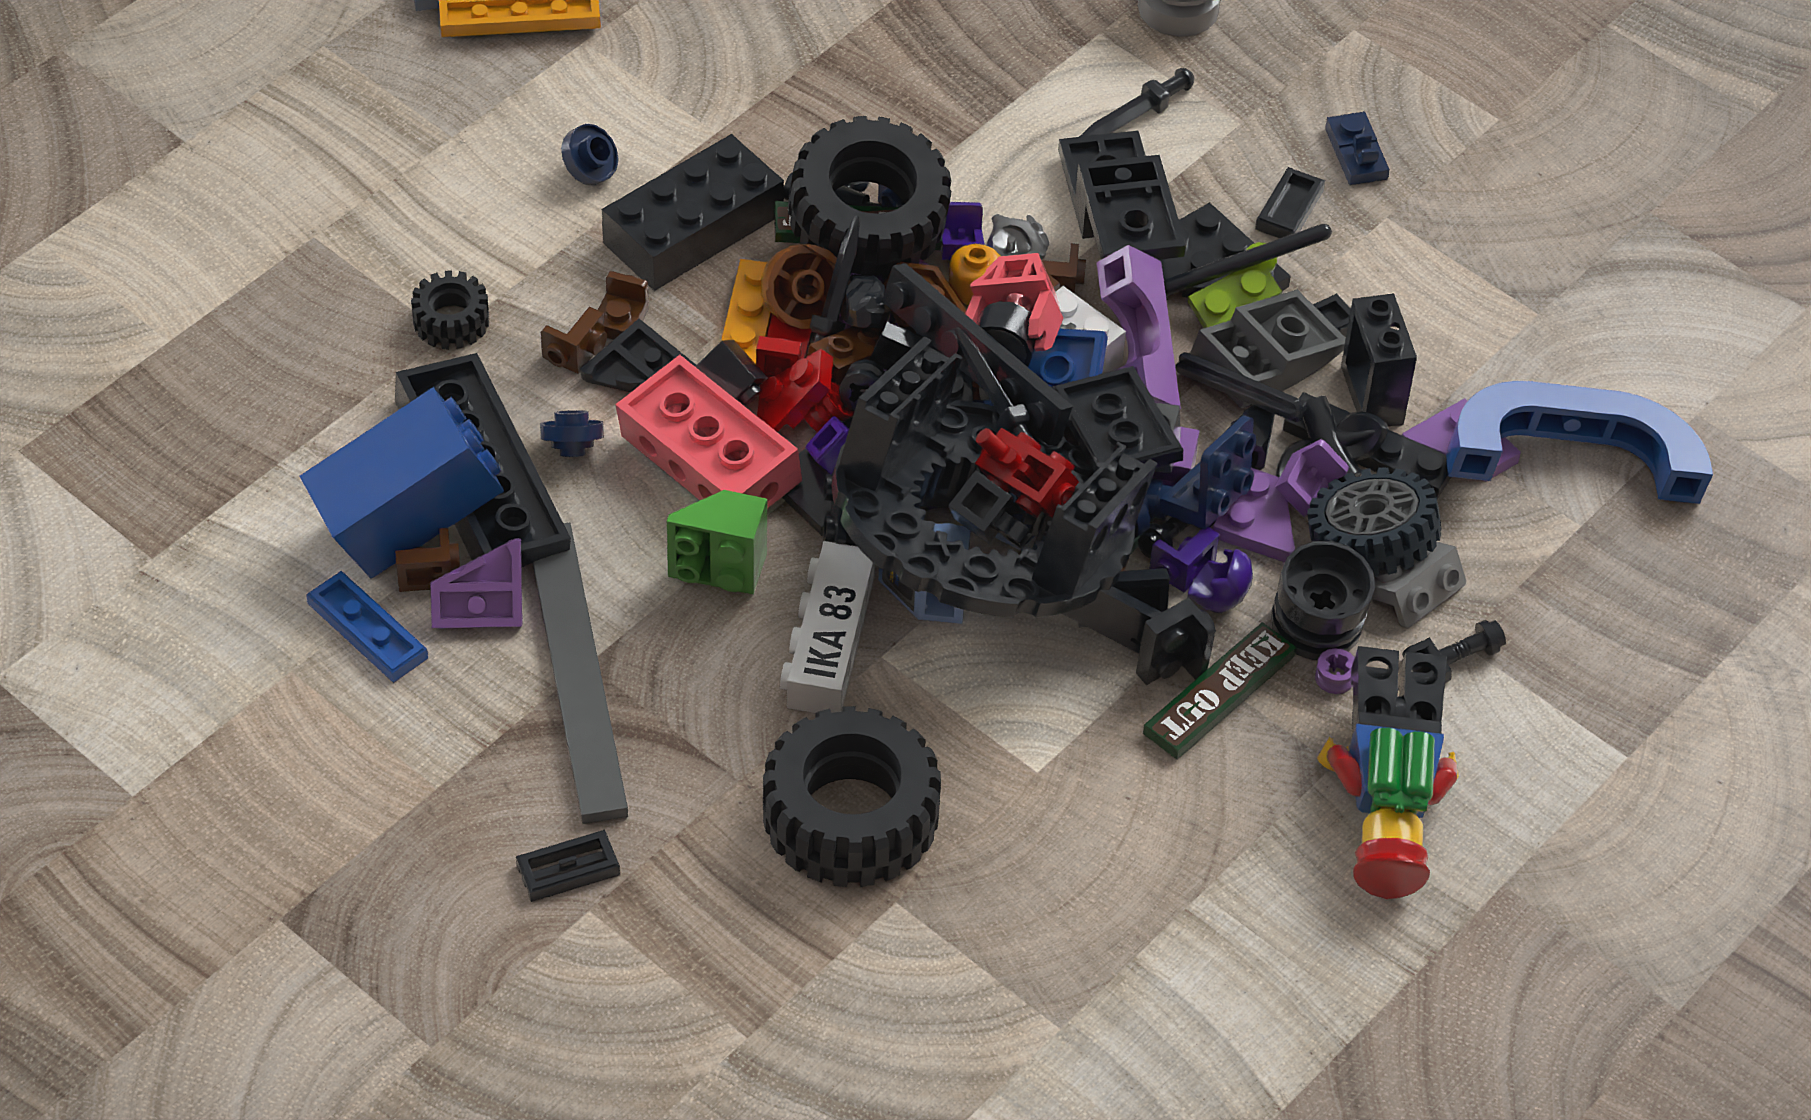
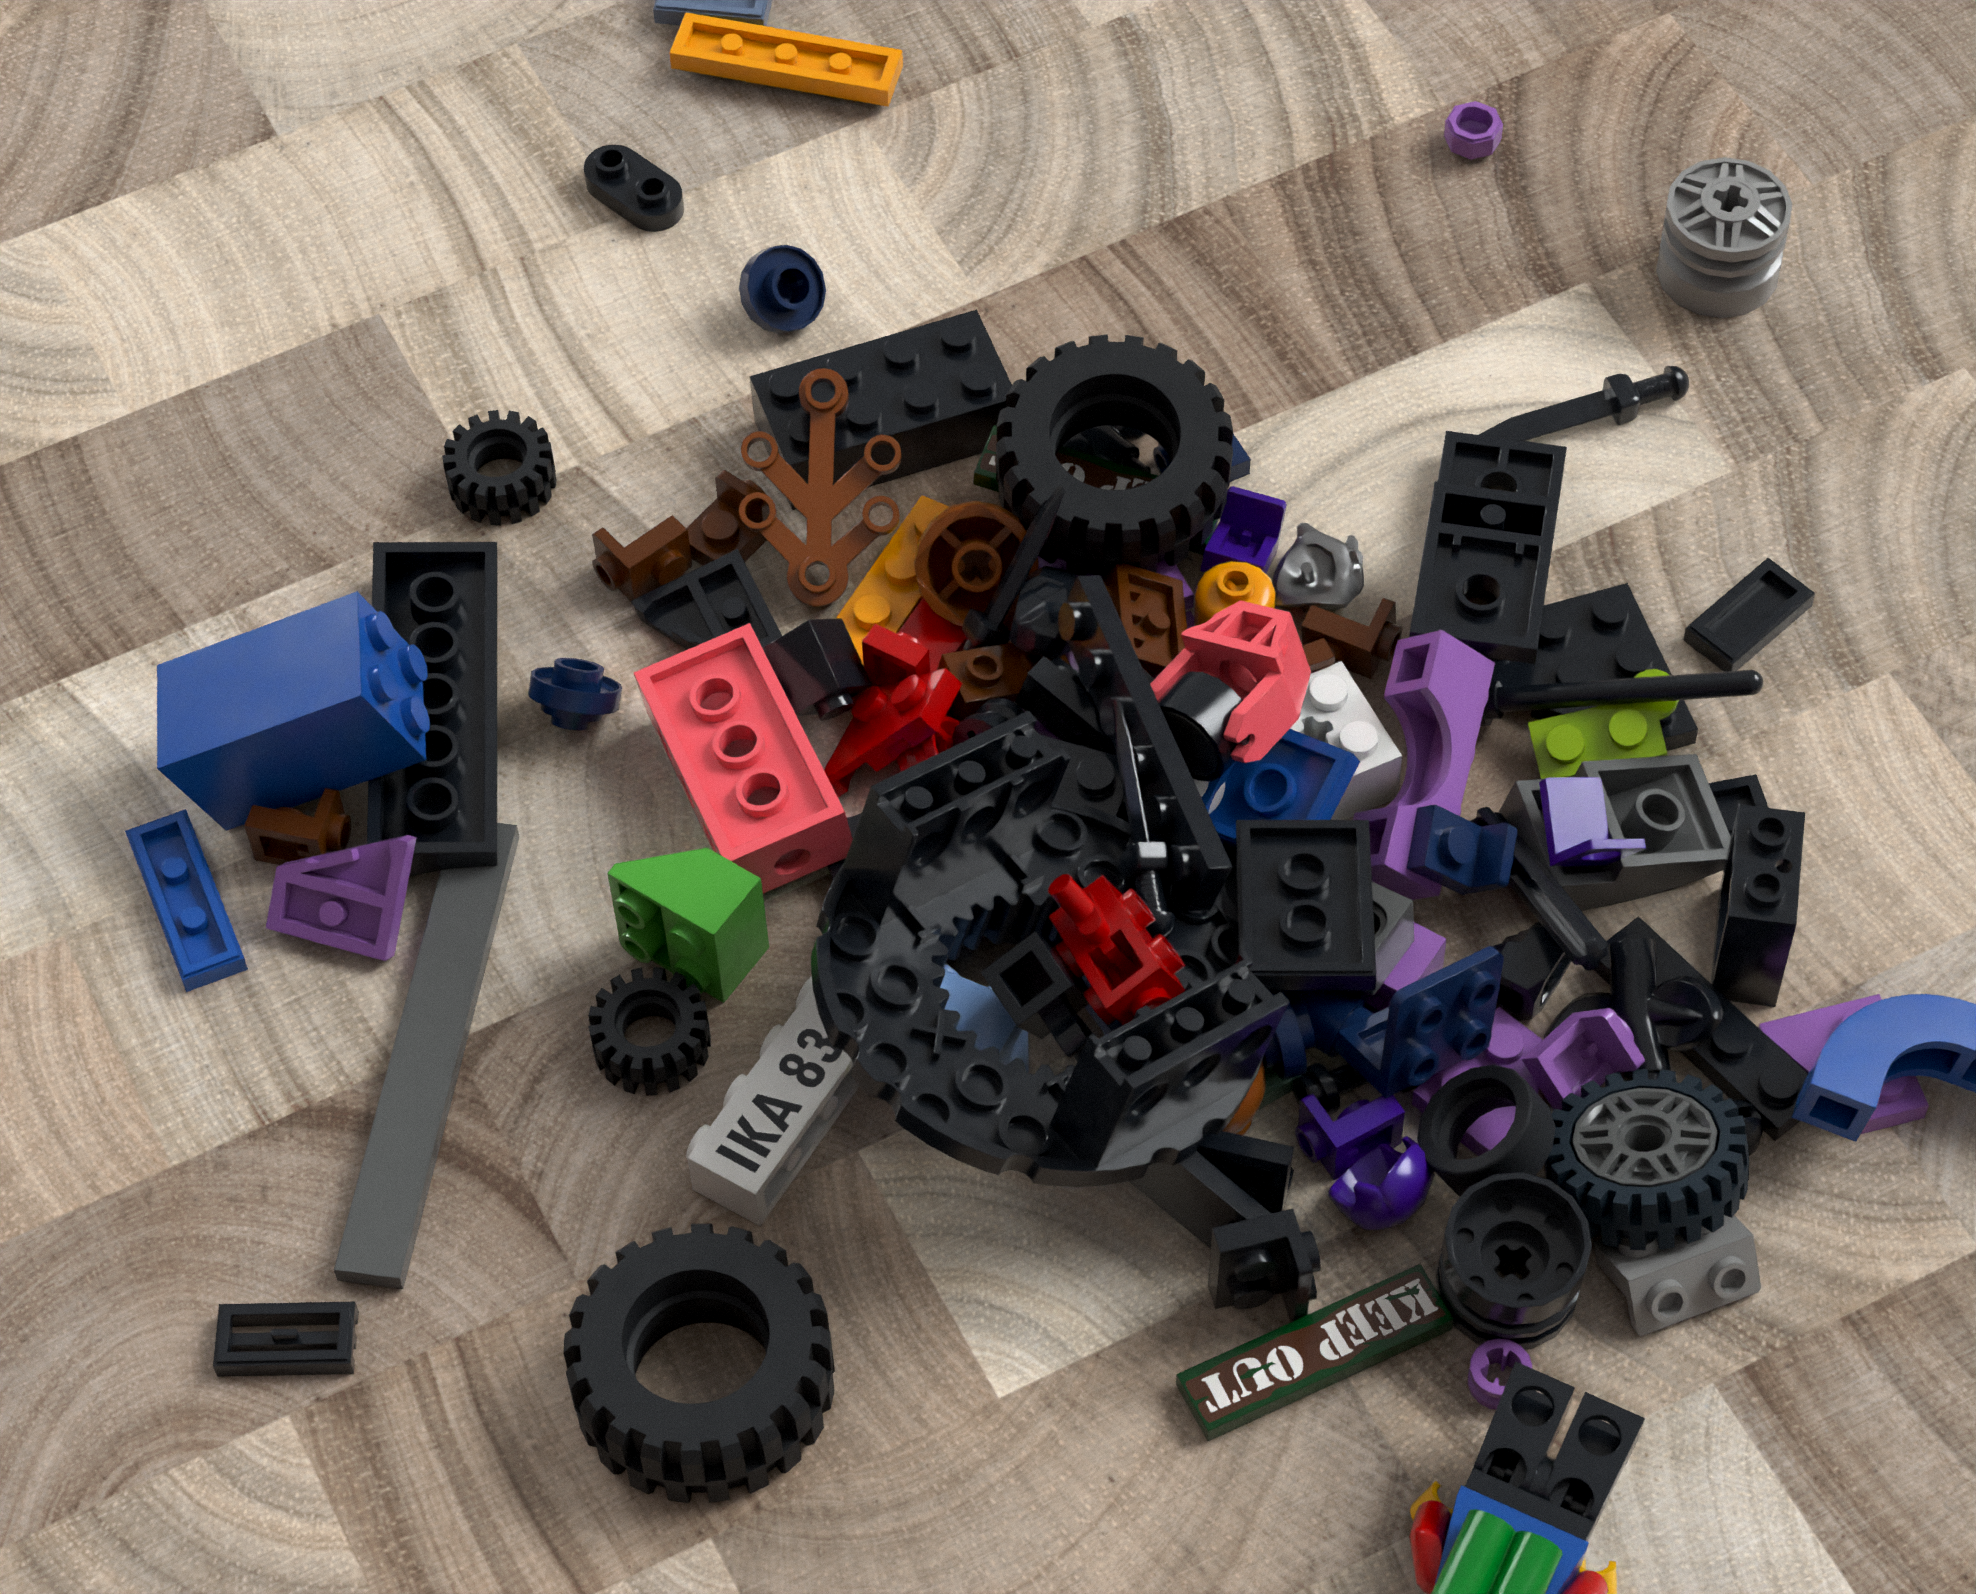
camera: 25 degrees right, 5 degrees up
(452, 117) = (624, 184): none -> black plate
(682, 272) = (820, 499): none -> dark orange plant
(718, 640) = (653, 1063): none -> black tyre
(1188, 379) = (1461, 852): none -> dark blue bracket
(1251, 343) = (1578, 824): none -> bracket
(1258, 512) = (1462, 1103): none -> black tyre
(1357, 148) = (1887, 554): dark blue plate -> none
(1488, 637) = (1657, 1403): black hinge -> none

